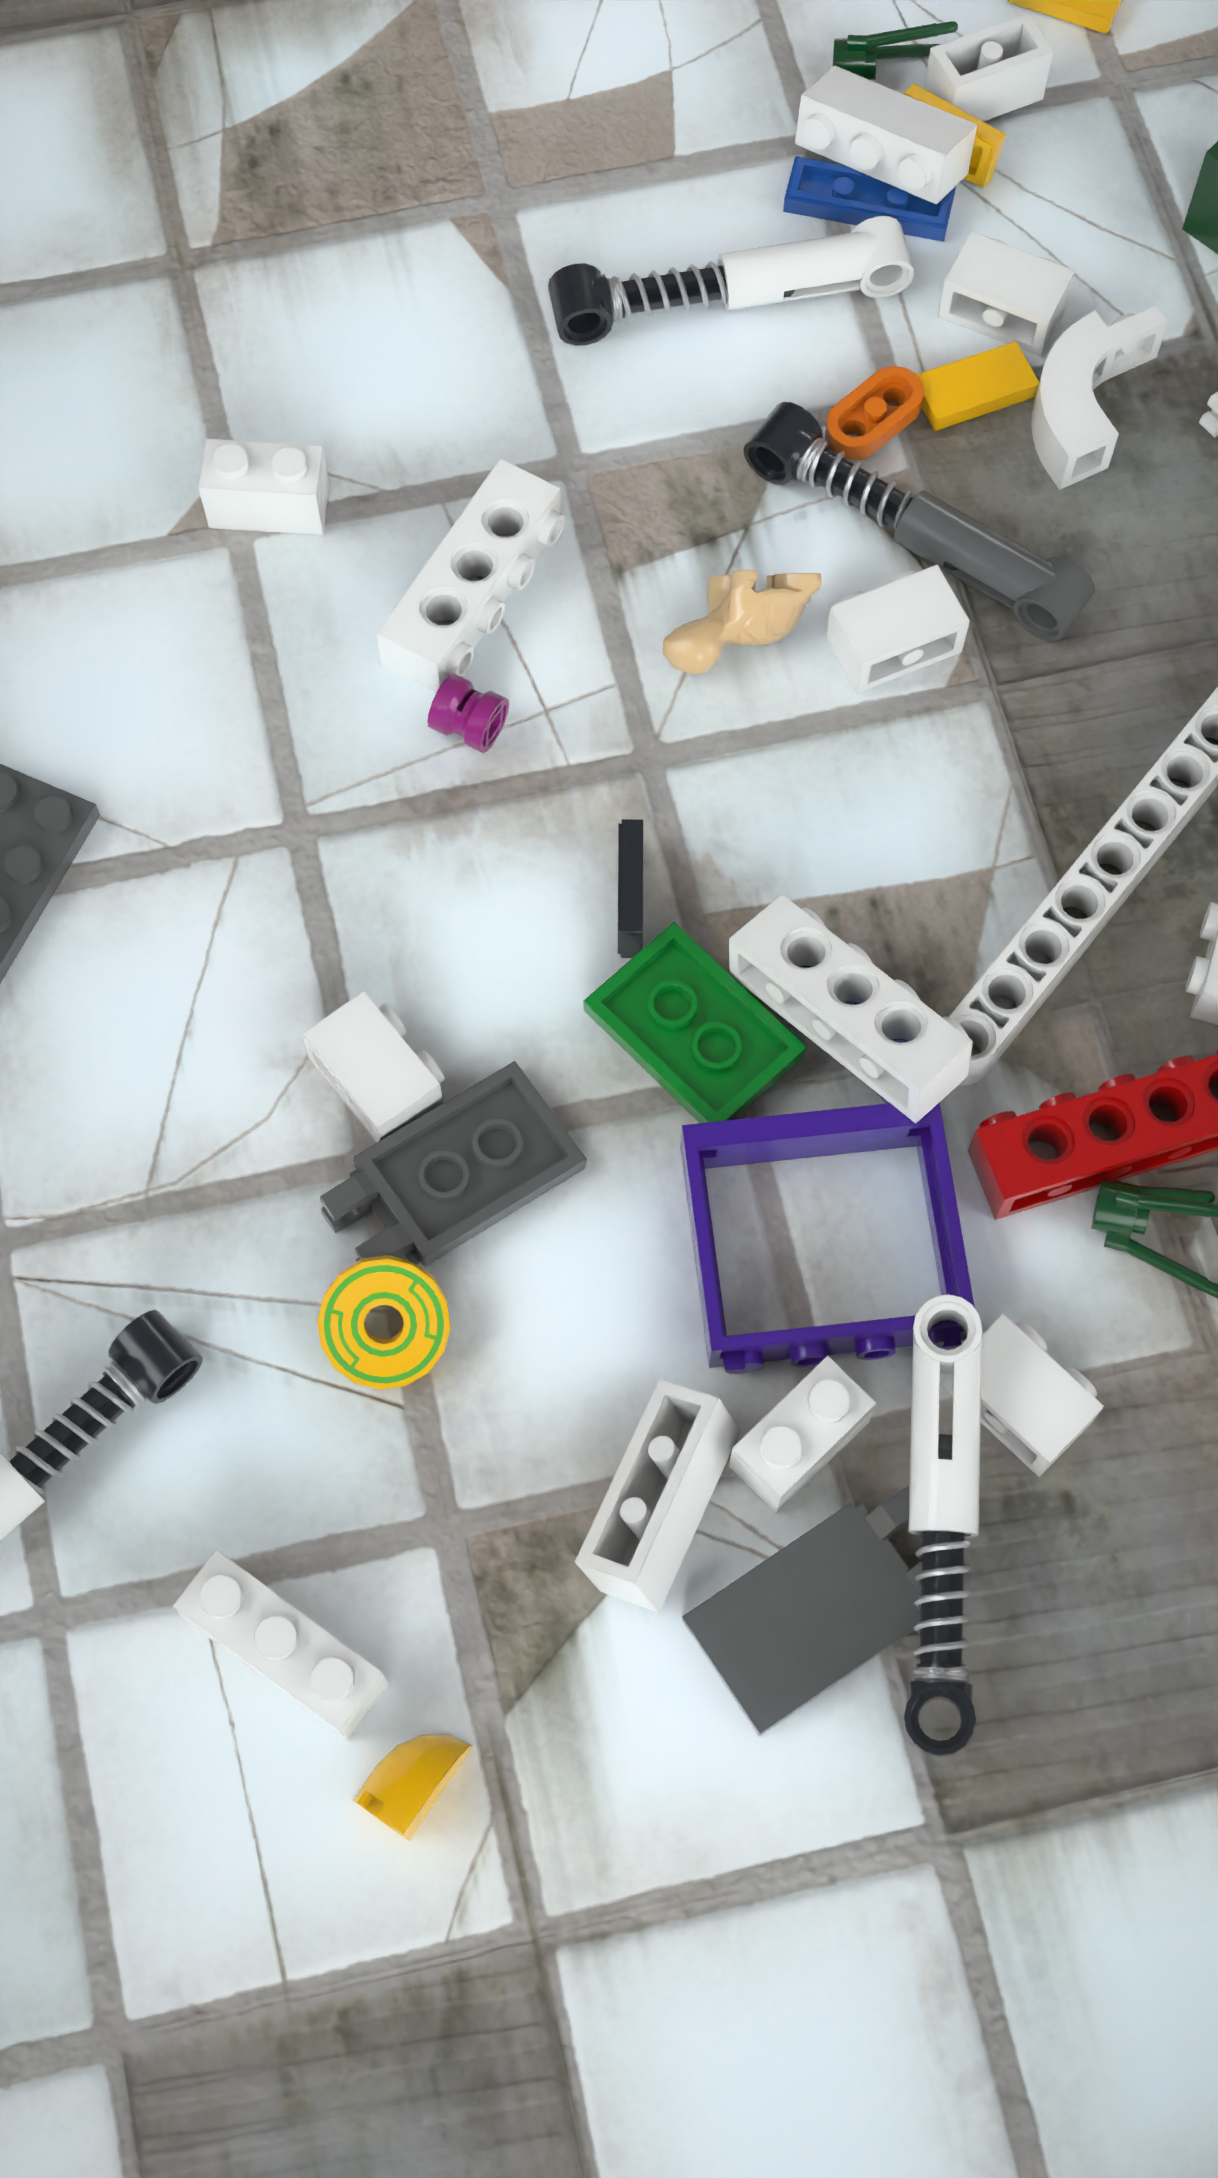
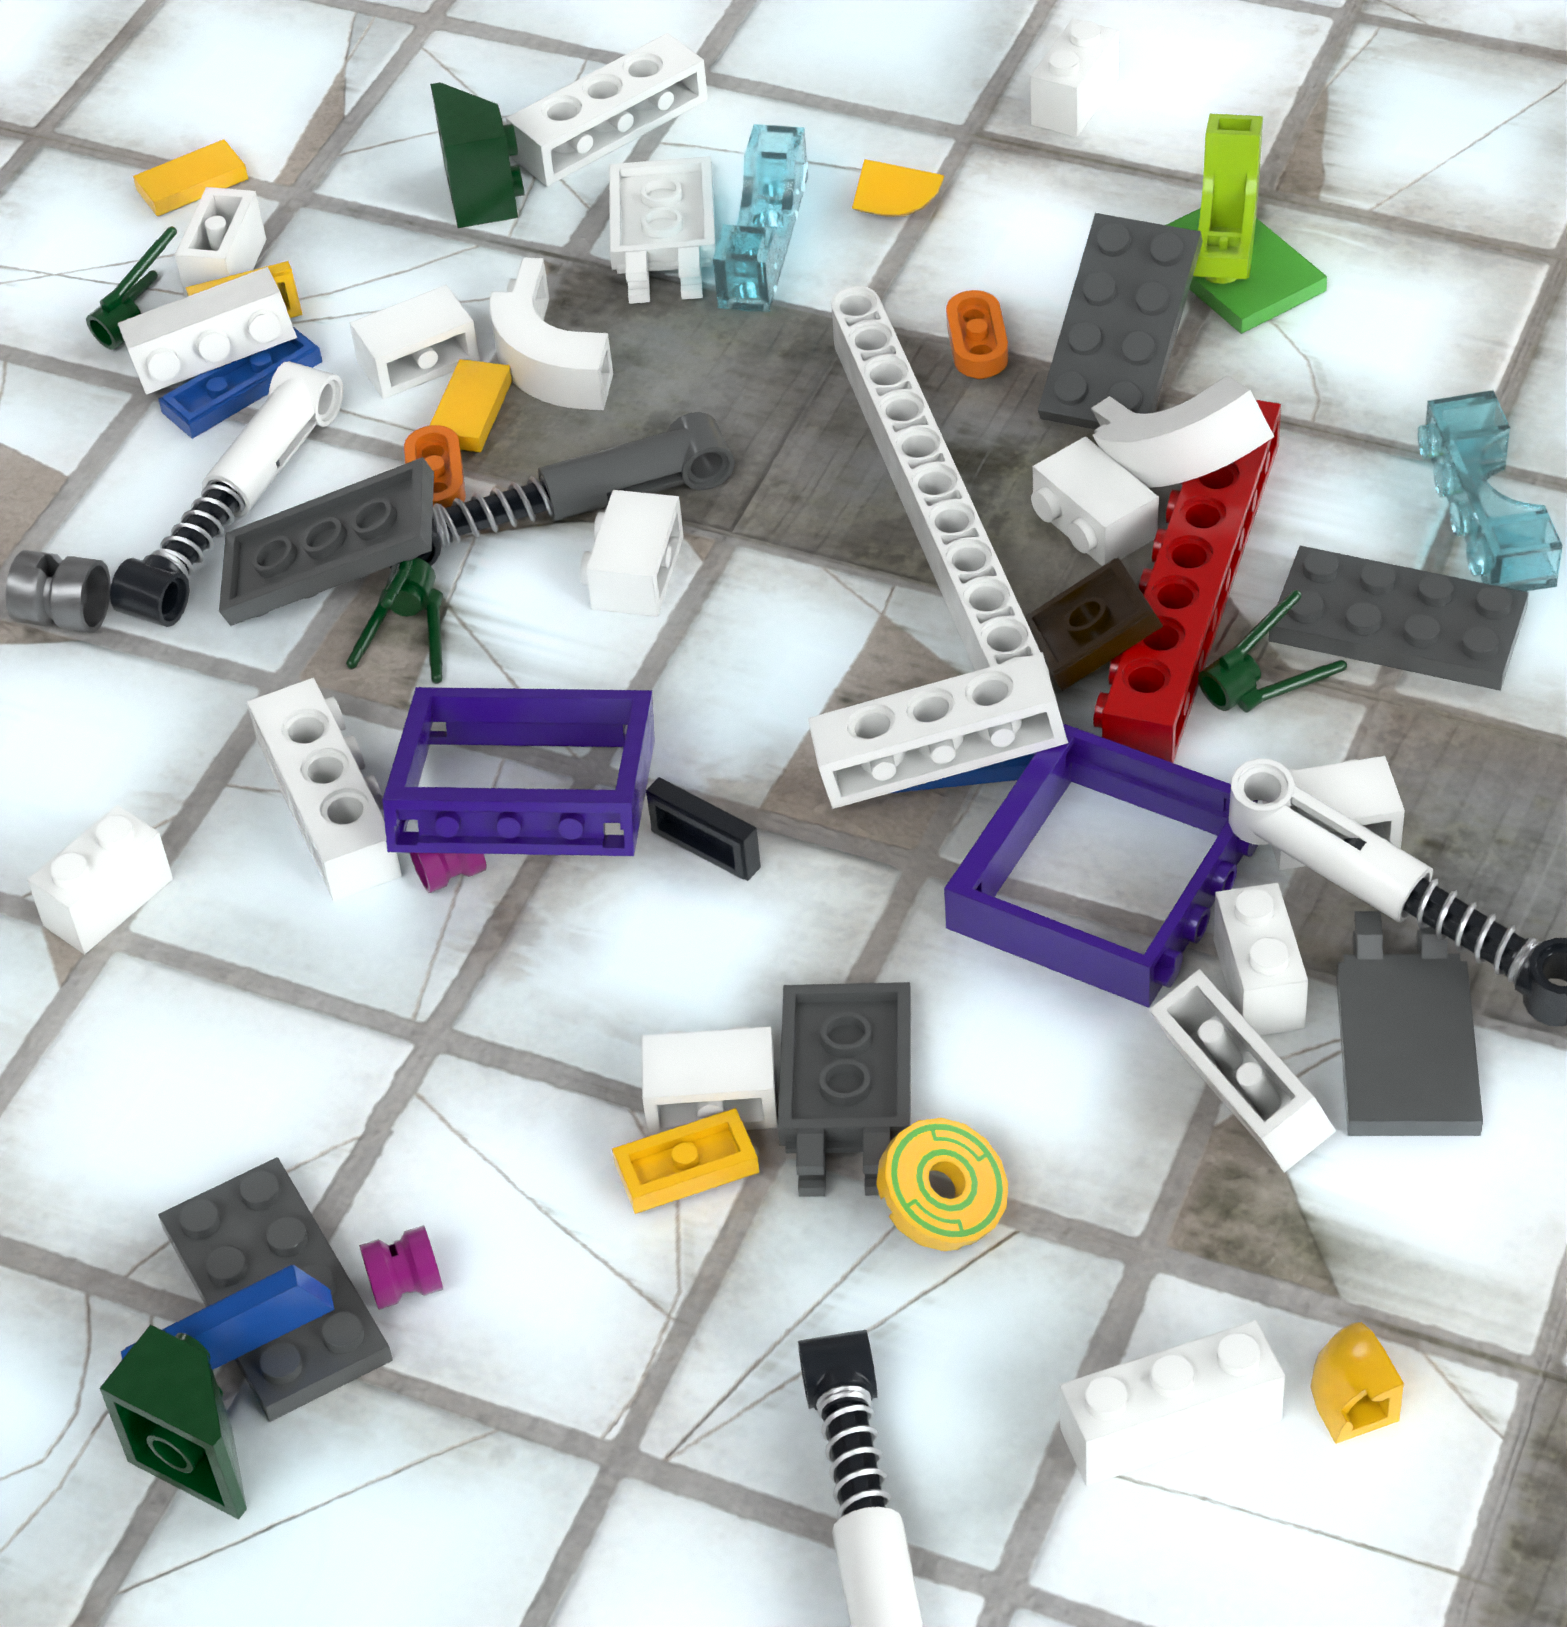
camera: 50 degrees left, 20 degrees down
(46, 965) = (401, 1267): none -> magenta wheel
(287, 1104) = (685, 1160): none -> yellow plate
(507, 758) = (520, 817): none -> dark purple window
(526, 238) = (50, 589): none -> flat silver wheel
(694, 1028) = (857, 855): green plate -> none
(714, 393) = (327, 541): none -> dark grey plate
(723, 488) = (407, 593): none -> dark green plant
(740, 617) = (539, 633): tan animal -> none
(1083, 1052) = (1091, 623): none -> dark brown tile

